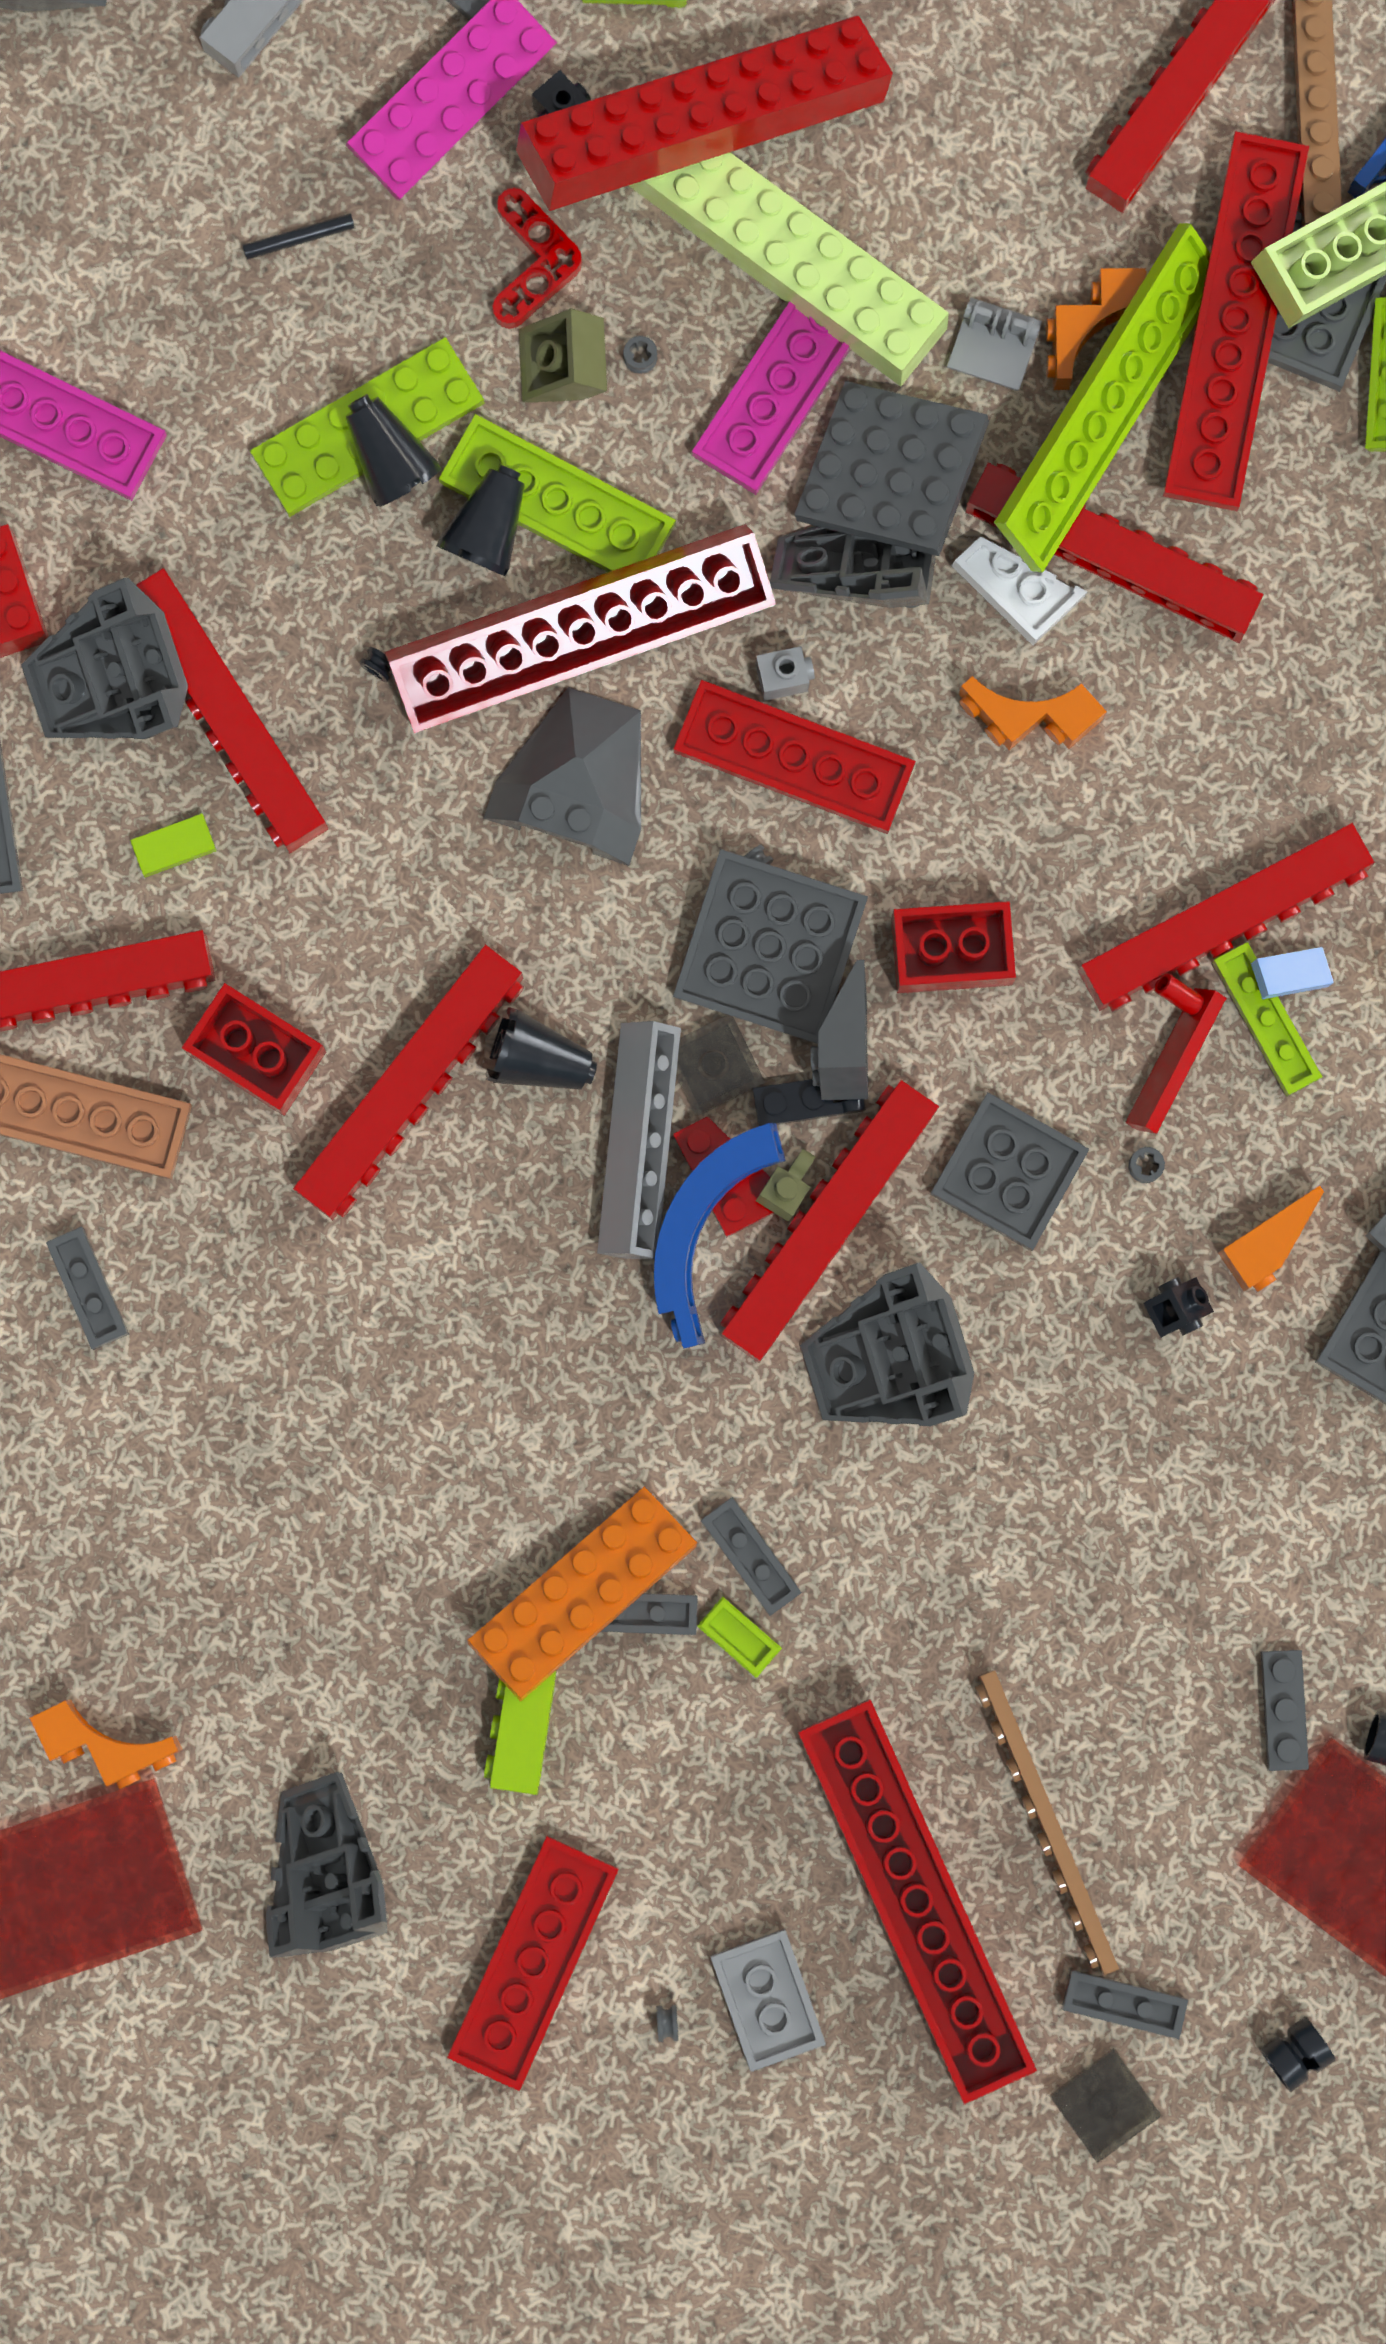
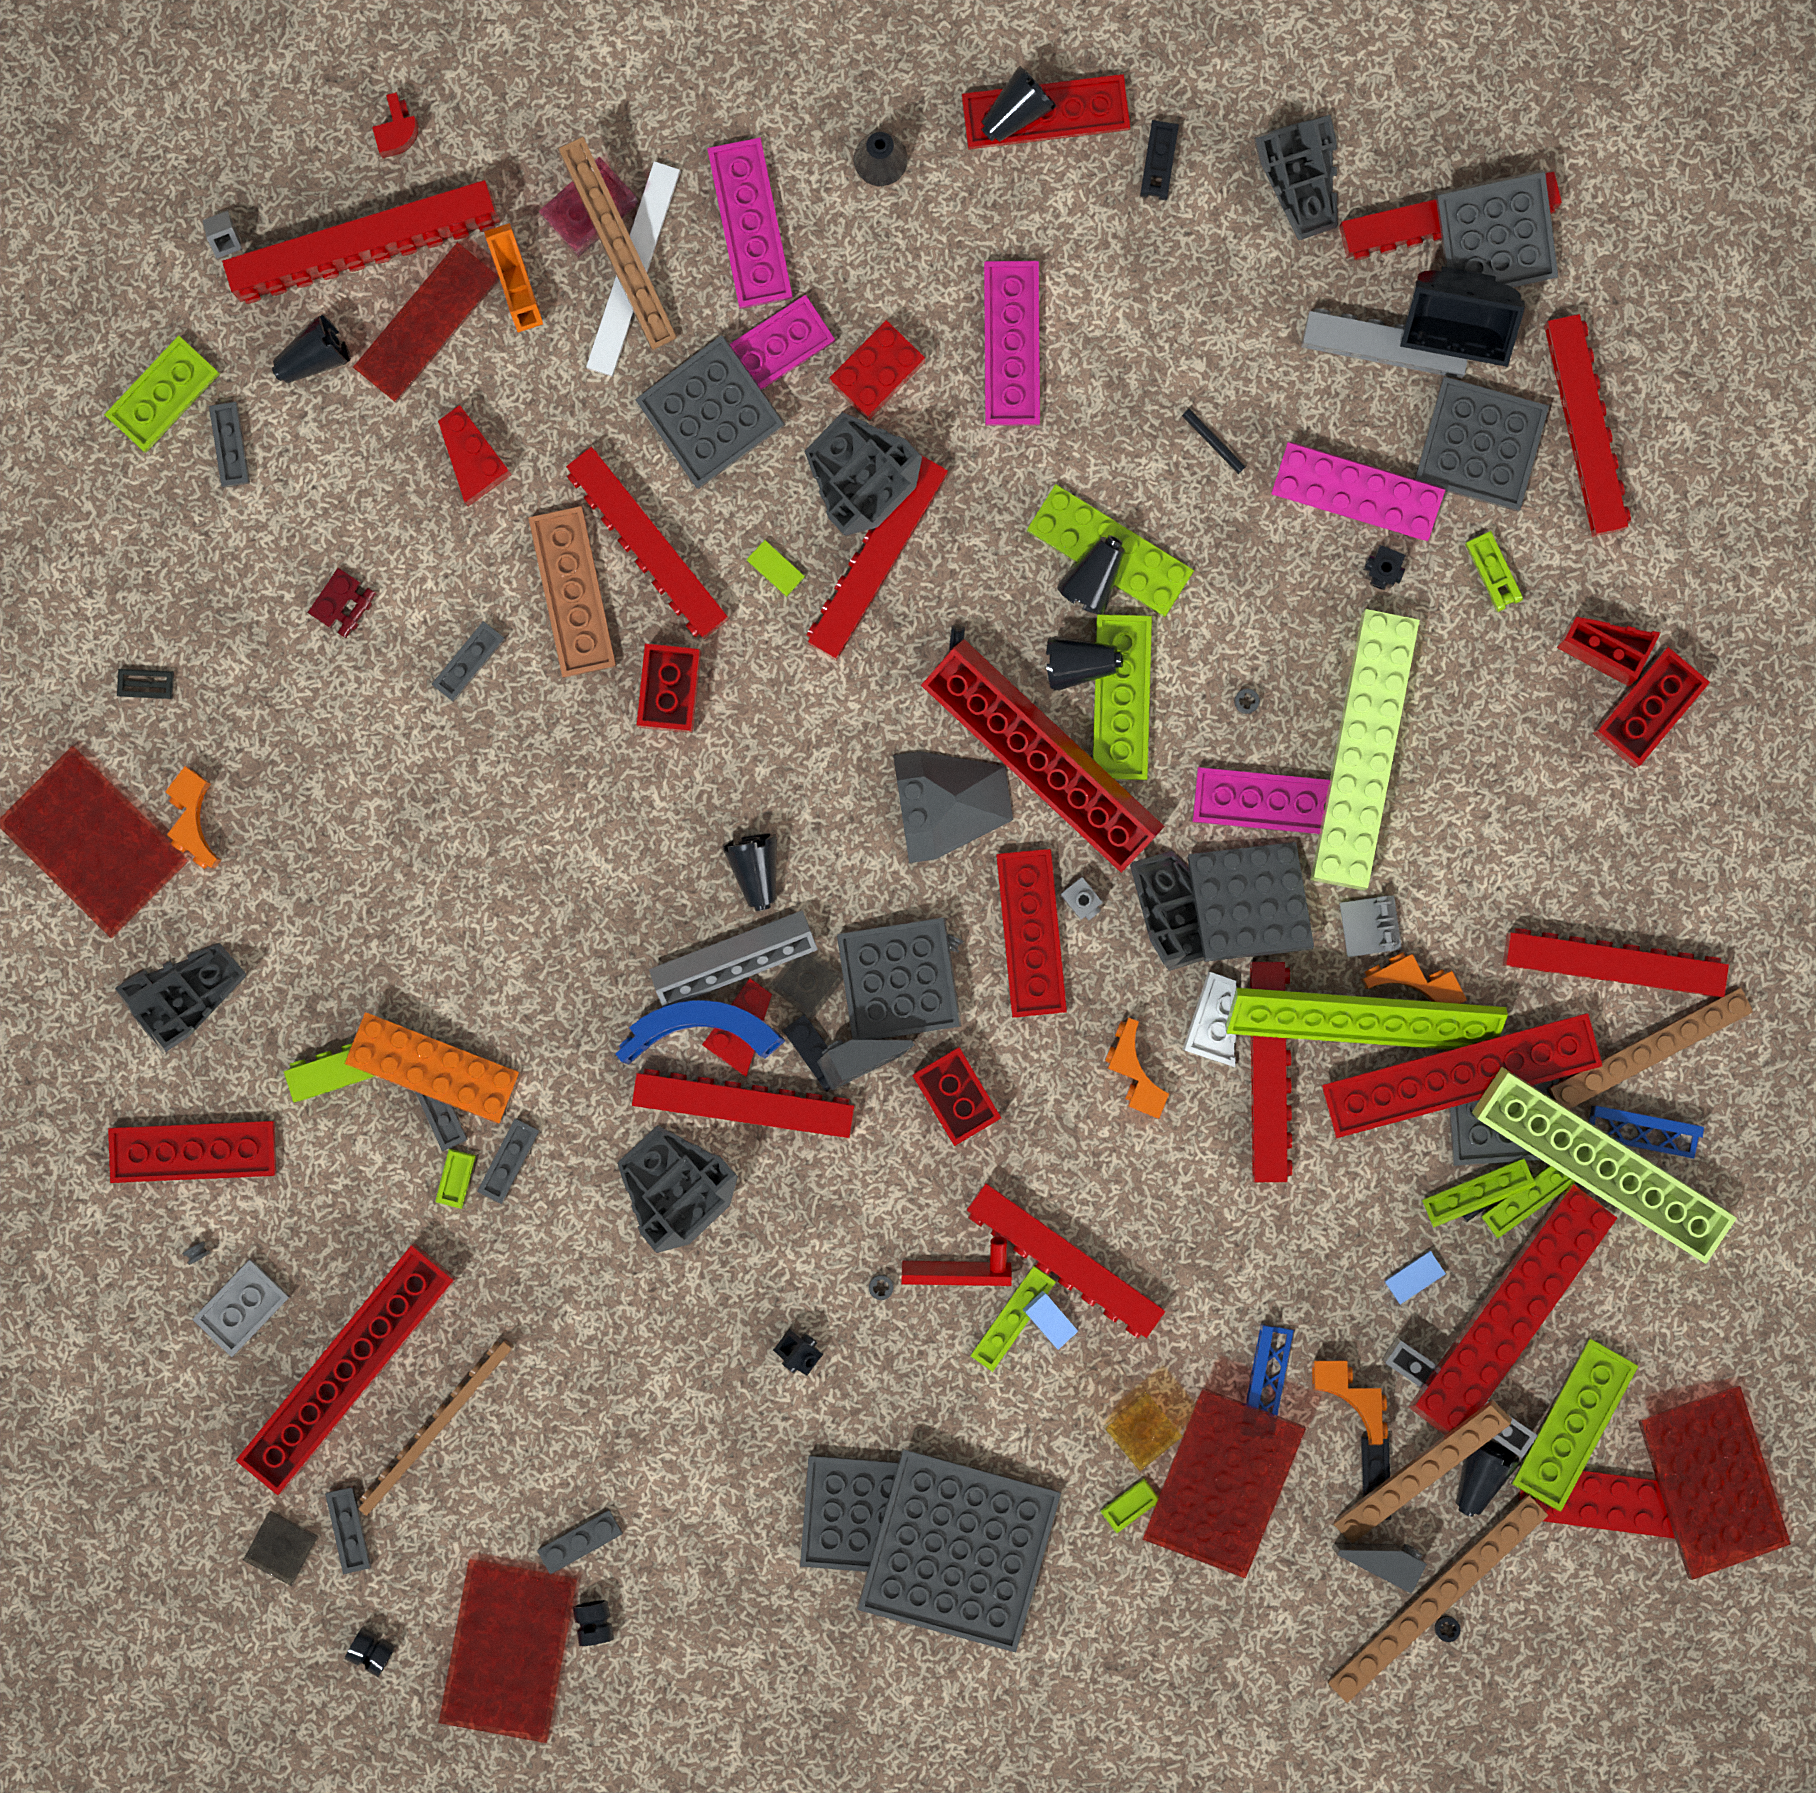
camera: 70 degrees right, 5 degrees up
(409, 1083) = (697, 796): red brick -> none
(546, 252) = (1284, 605): red beam -> none
(563, 358) = (1217, 653): olive slope -> none
(703, 112) = (1419, 664): red brick -> none
(785, 1189) = (749, 1067): olive plate -> none
(1009, 1171) = (832, 1203): dark grey plate -> none
(1267, 1246) = (866, 1389): orange slope -> none

